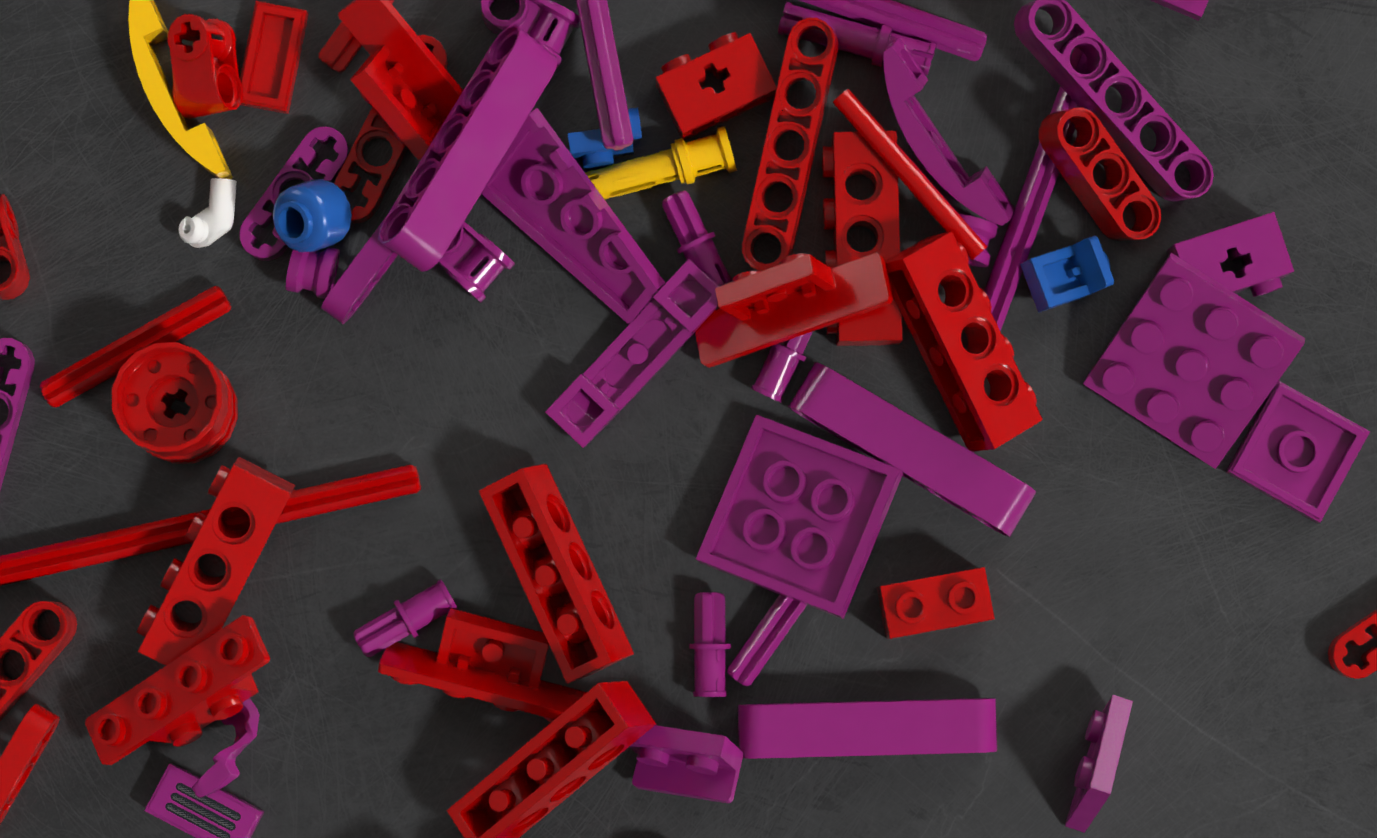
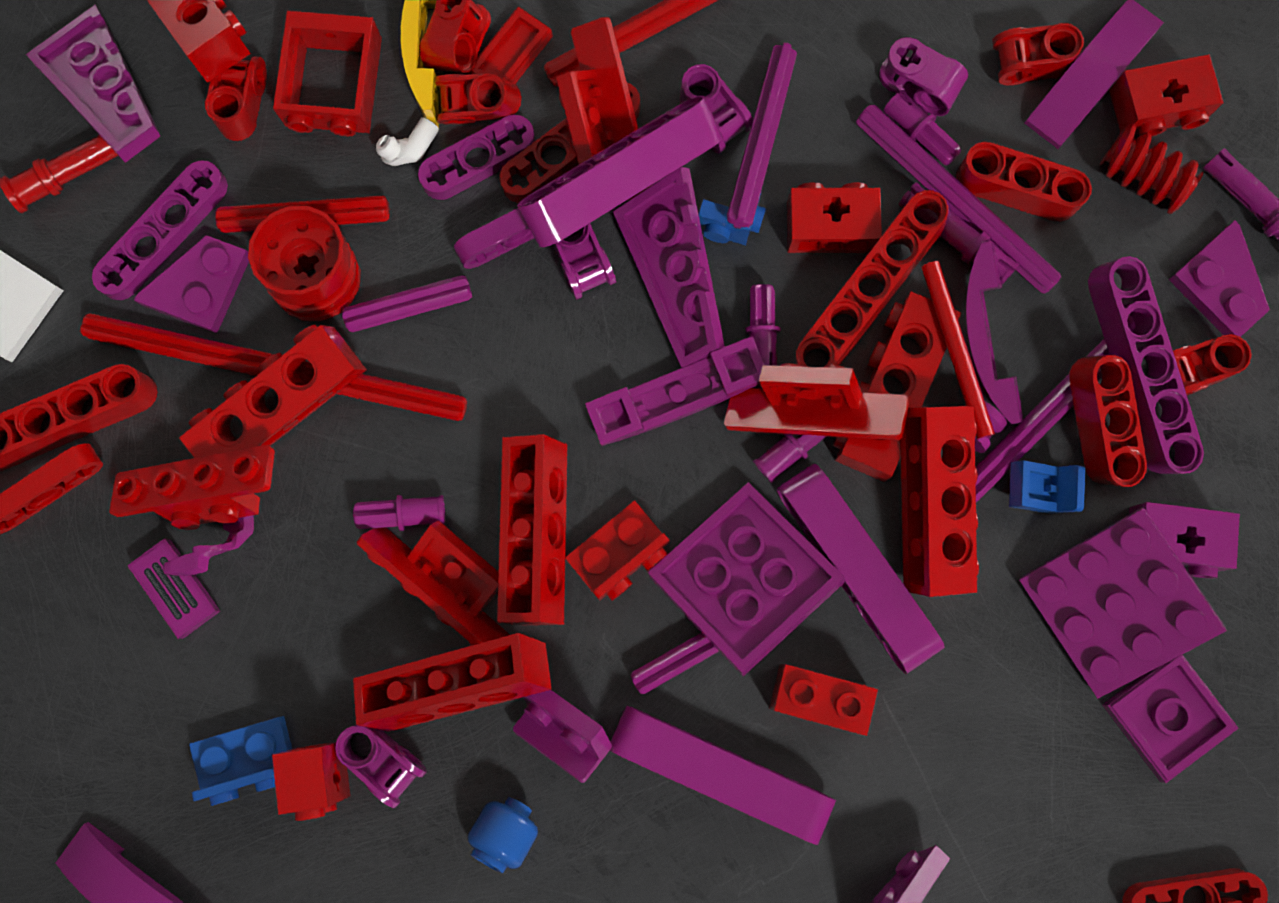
camera: 30 degrees right, 5 degrees down
(60, 477) = (198, 284): none -> magenta wing
(64, 130) = (331, 33): none -> red window
(255, 134) = (467, 98): none -> red piece
(299, 392) = (407, 303): none -> magenta axle
(312, 215) = (478, 171): blue head -> none
(313, 271) = (460, 214): magenta wheel -> none
(653, 551) = (618, 552): none -> red bracket
(680, 163) = (778, 264): yellow pin -> none
(709, 645) = (626, 646): magenta axle -> none
(1167, 72) = (1199, 365): none -> red piece

